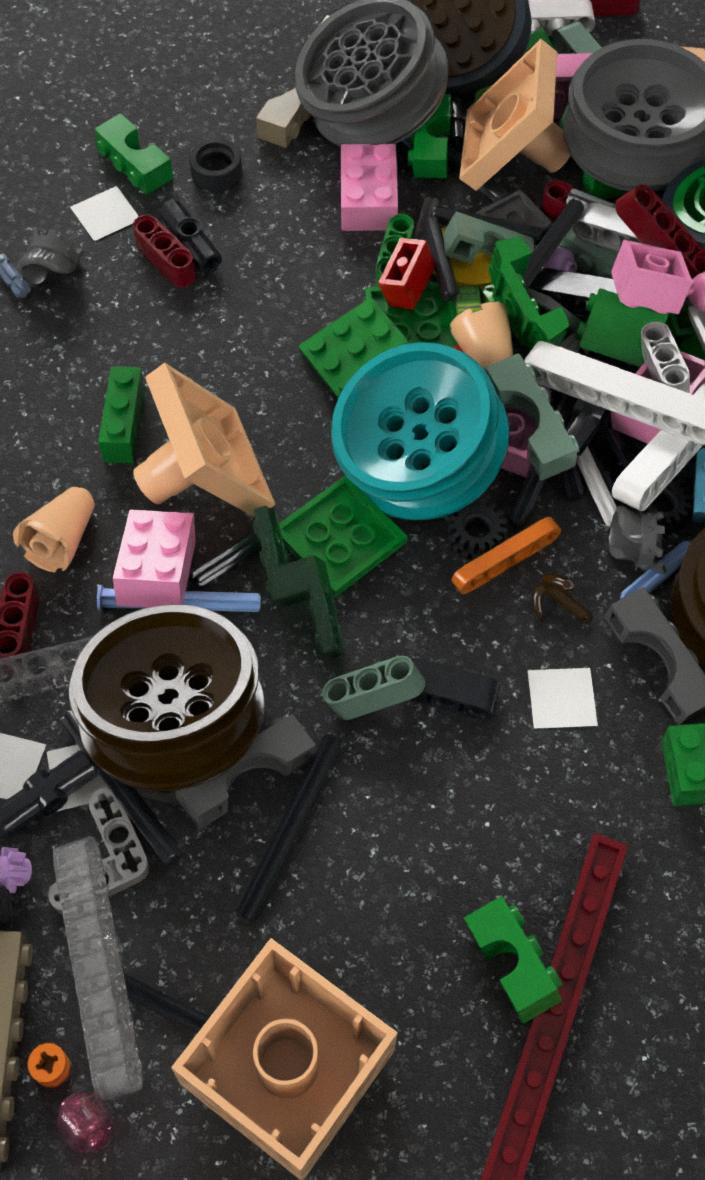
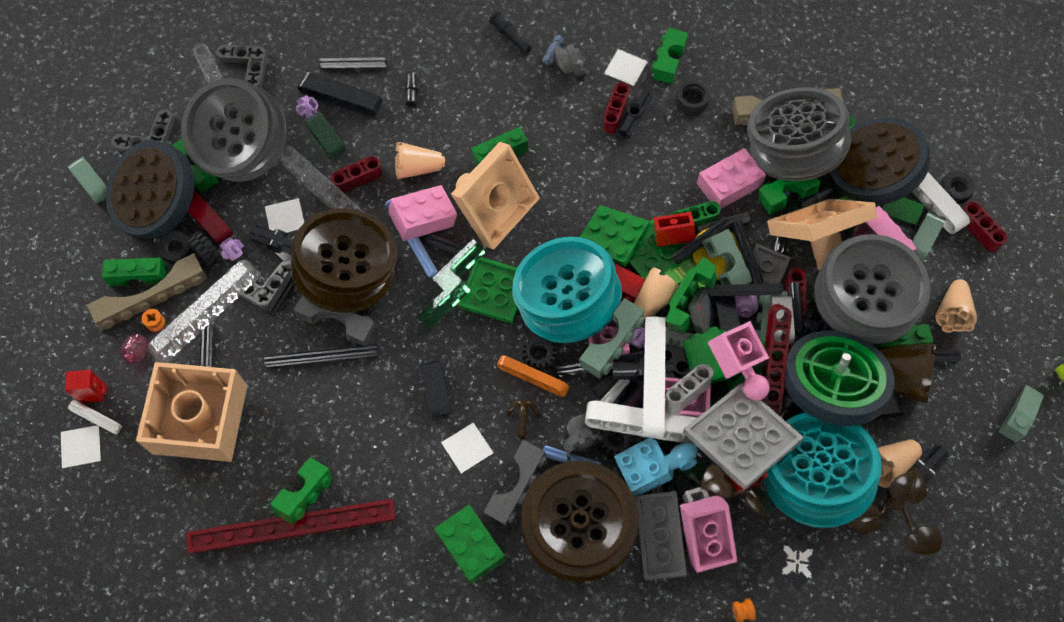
camera: 60 degrees right, 5 degrees up
(373, 687) = (409, 351): sand green beam -> none

